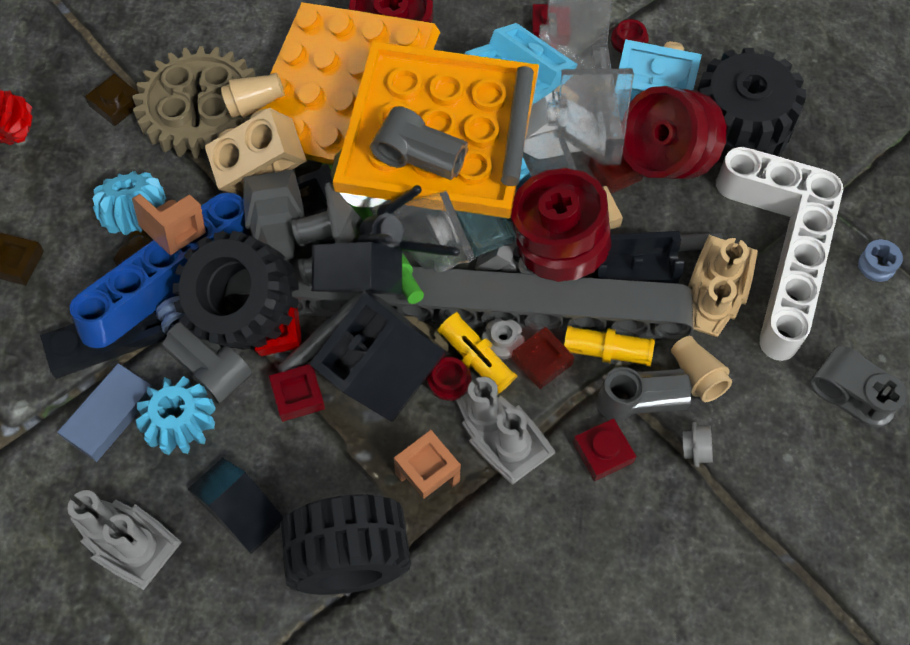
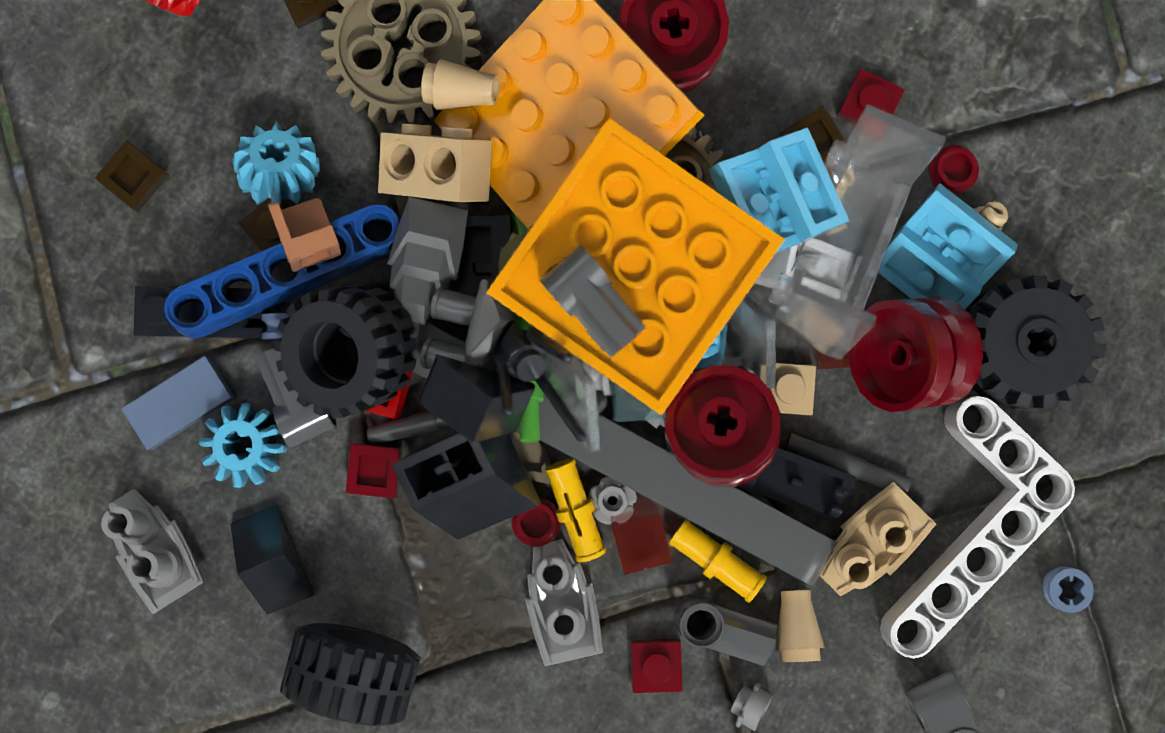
camera: 25 degrees right, 25 degrees up
(427, 465) = (466, 618): nougat panel -> none
(517, 126) = (718, 317): dark grey bar -> none

